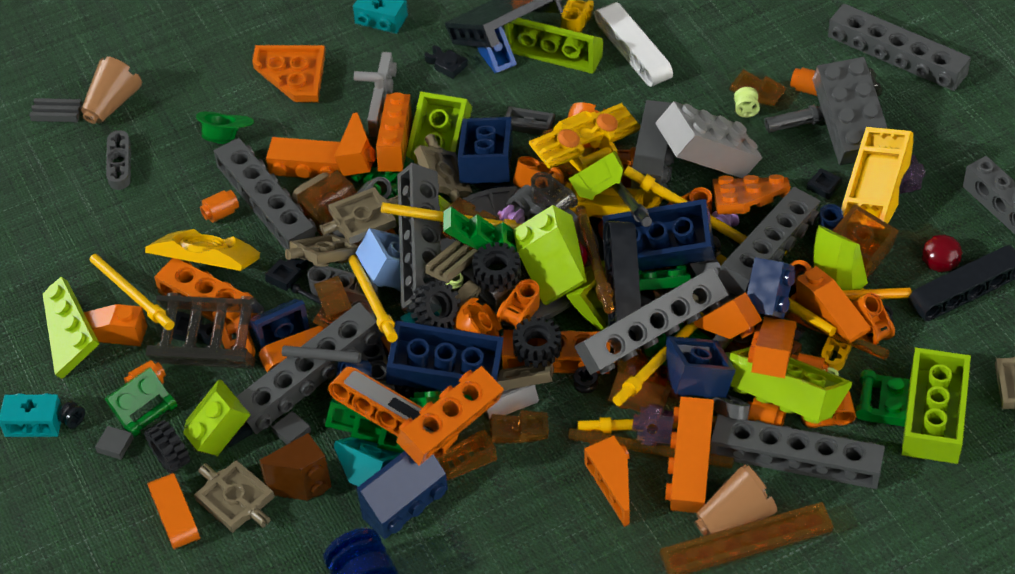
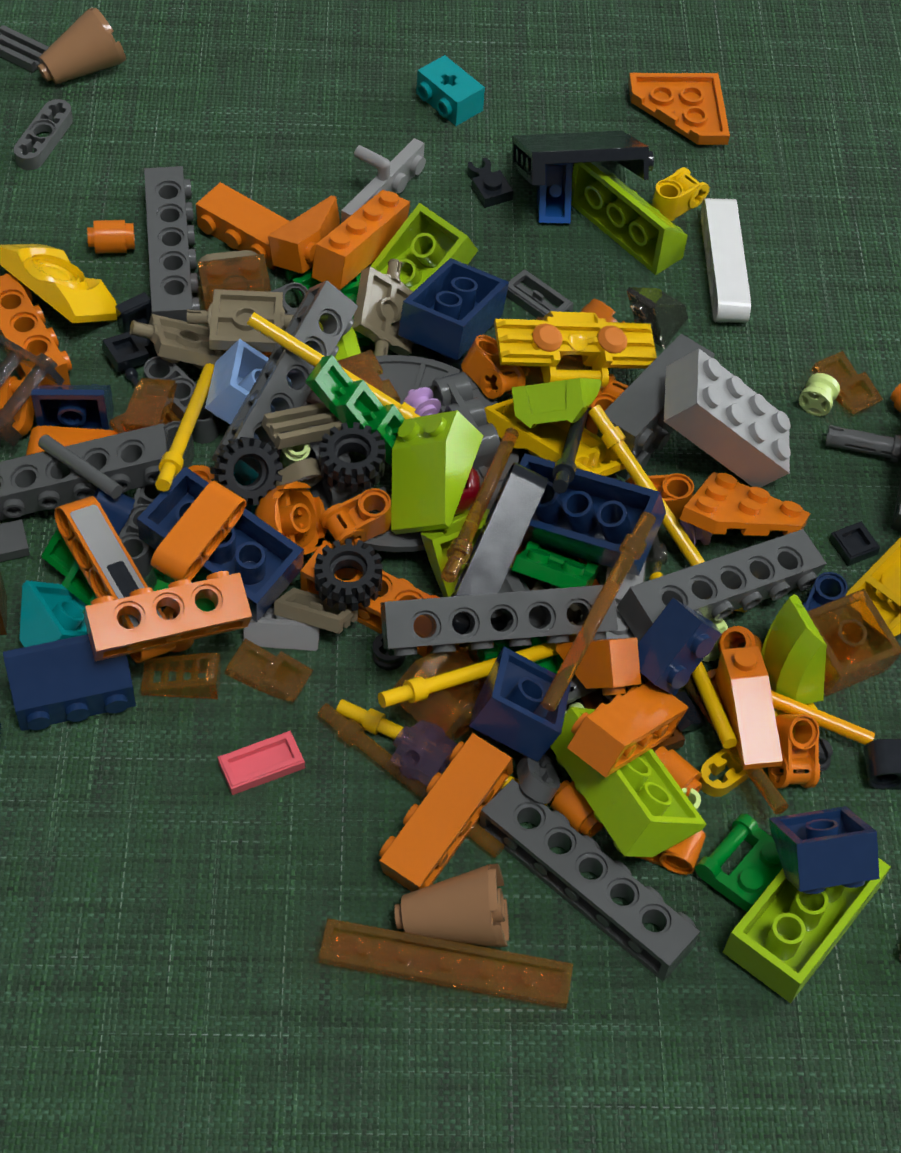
camera: 20 degrees right, 5 degrees up
(221, 127) = (176, 144): green piece -> none
(272, 248) = (135, 309): none -> black tile
(292, 69) = (305, 115): orange plate -> none
(435, 355) = (198, 532): none -> orange beam
(548, 192) = (478, 396): clear smoke piece -> none
(552, 483) = (261, 762): none -> coral tile
(609, 467) = (339, 788): orange slope -> none
(617, 92) = (659, 310): none -> clear smoke slope
(711, 241) = (631, 550): none -> clear orange bar
(930, 361) = (826, 849): none -> dark blue slope

